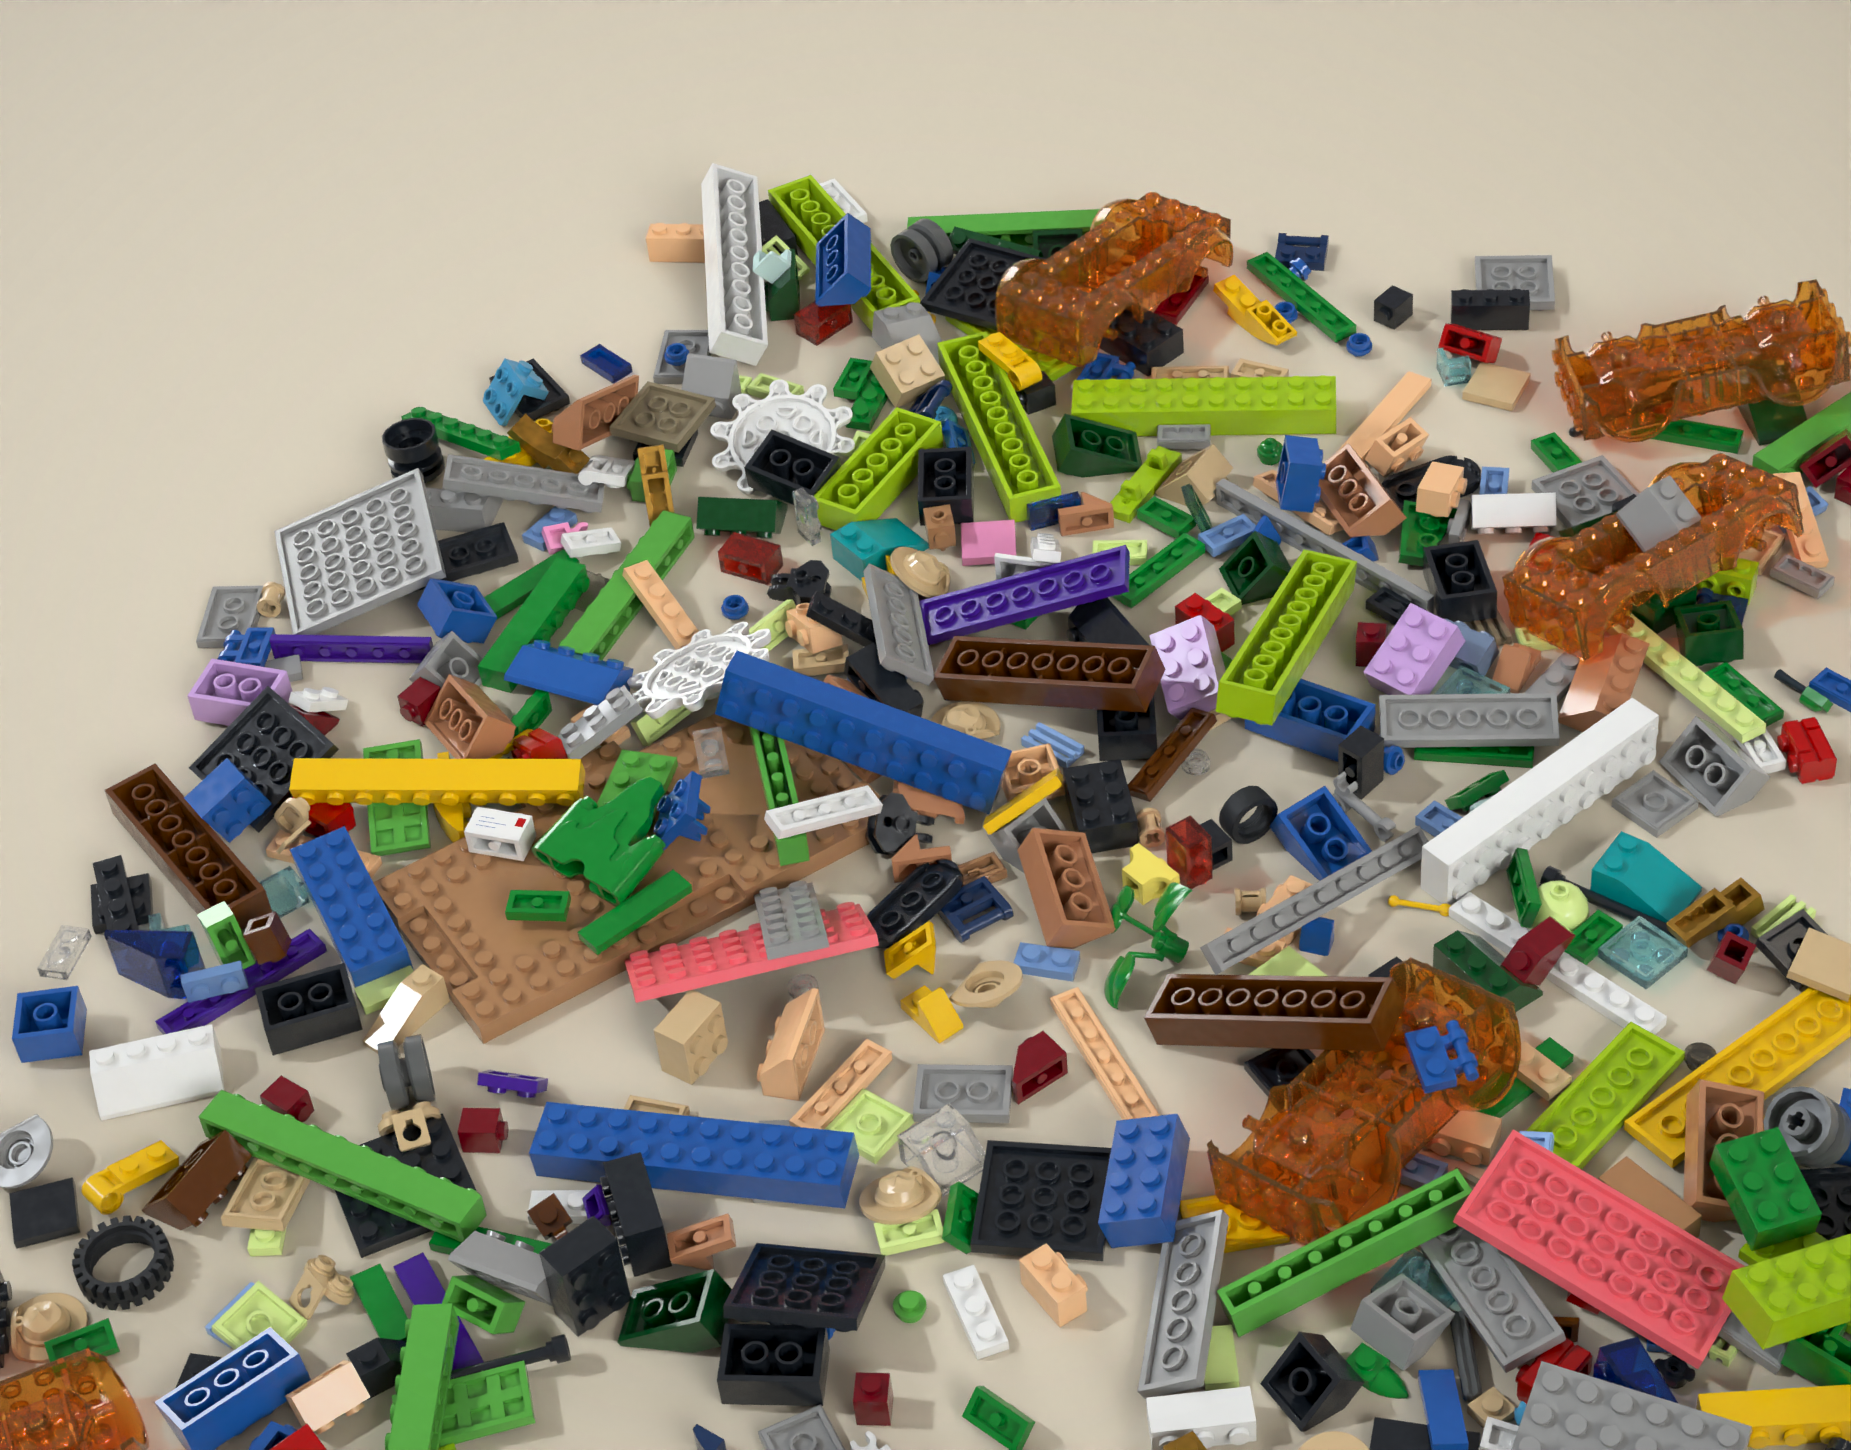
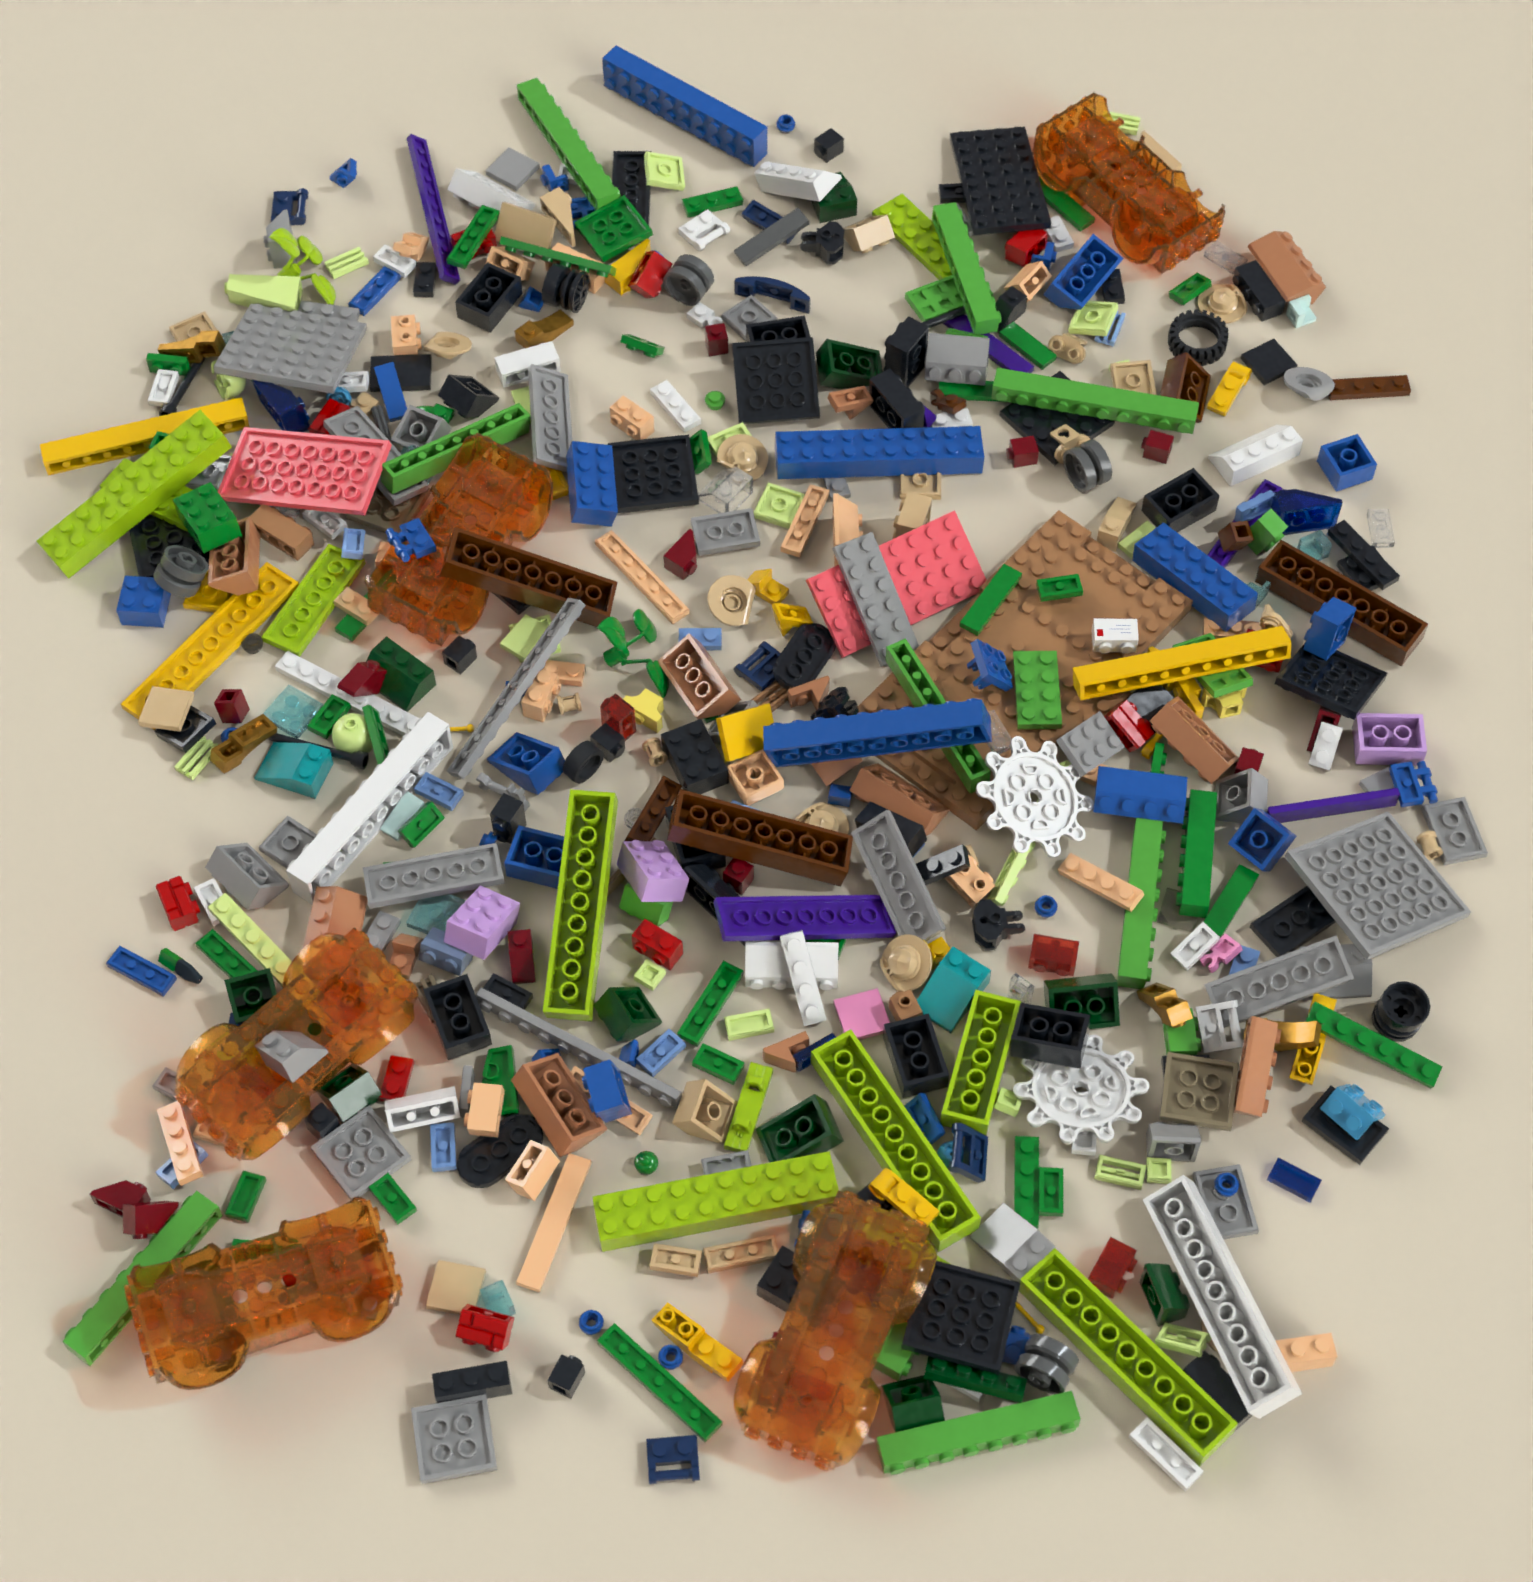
camera: 160 degrees right, 15 degrees up
(500, 1081) = (1020, 486): dark purple plate -> none
(606, 841) = (1033, 631): green rock -> none
(771, 265) = (1178, 1287): light aqua panel -> none
(823, 812) = (879, 662): white plate -> none
(843, 263) = (1107, 1297): blue slope -> none
(906, 370) = (998, 1187): tan brick -> none
(1196, 508) = (689, 1055): clear green tile -> none
(1300, 268) = (667, 1420): blue plate -> none

